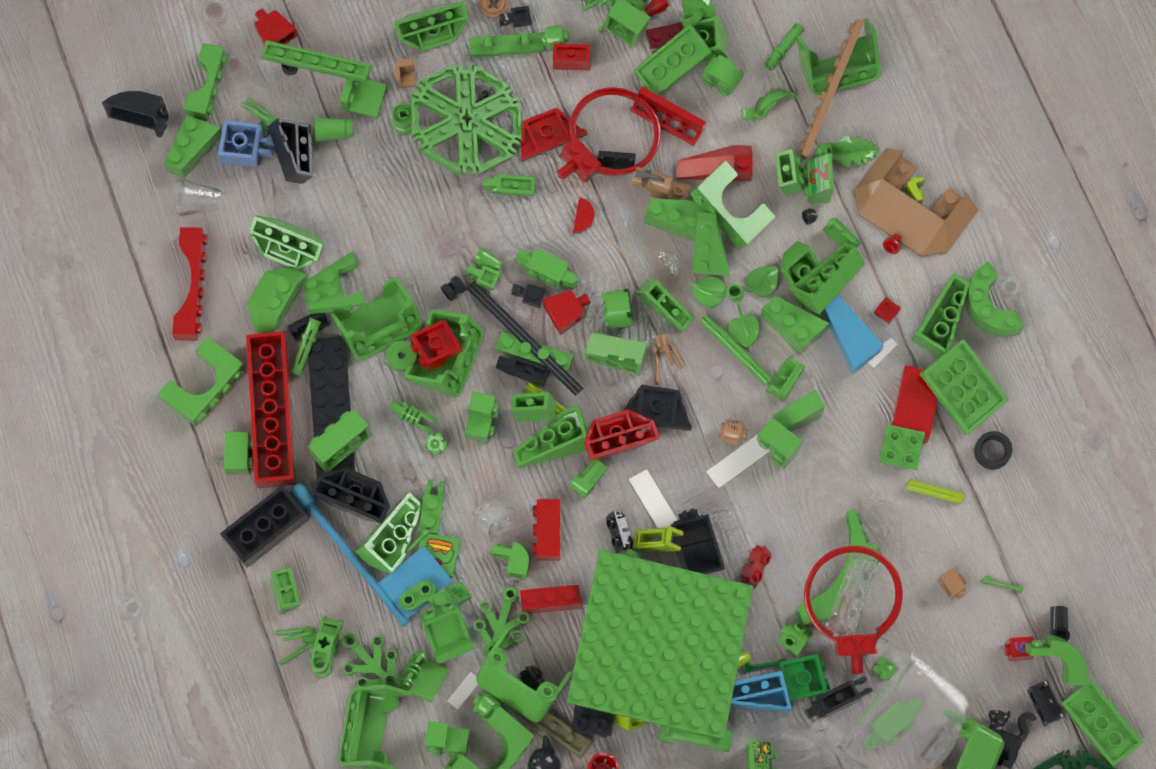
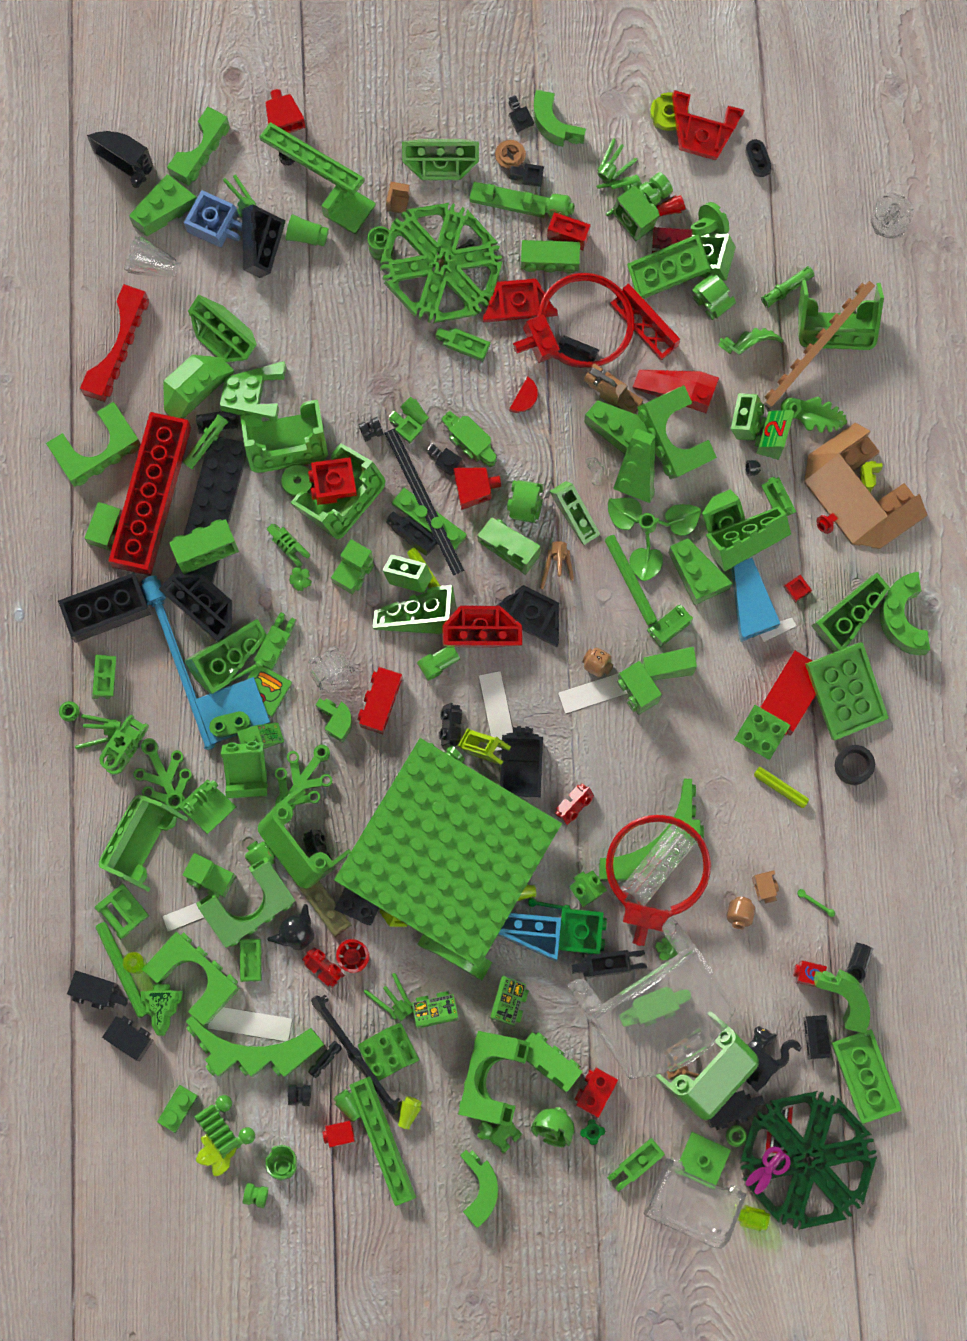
camera: 20 degrees right, 5 degrees up
(259, 627) = (69, 705): none -> bright green plate
(463, 691) = (243, 833): white sticker -> none
(550, 599) = (358, 770): red brick -> none
(562, 84) = (550, 256): none -> bright green brick
(939, 614) = (741, 912): none -> medium nougat head

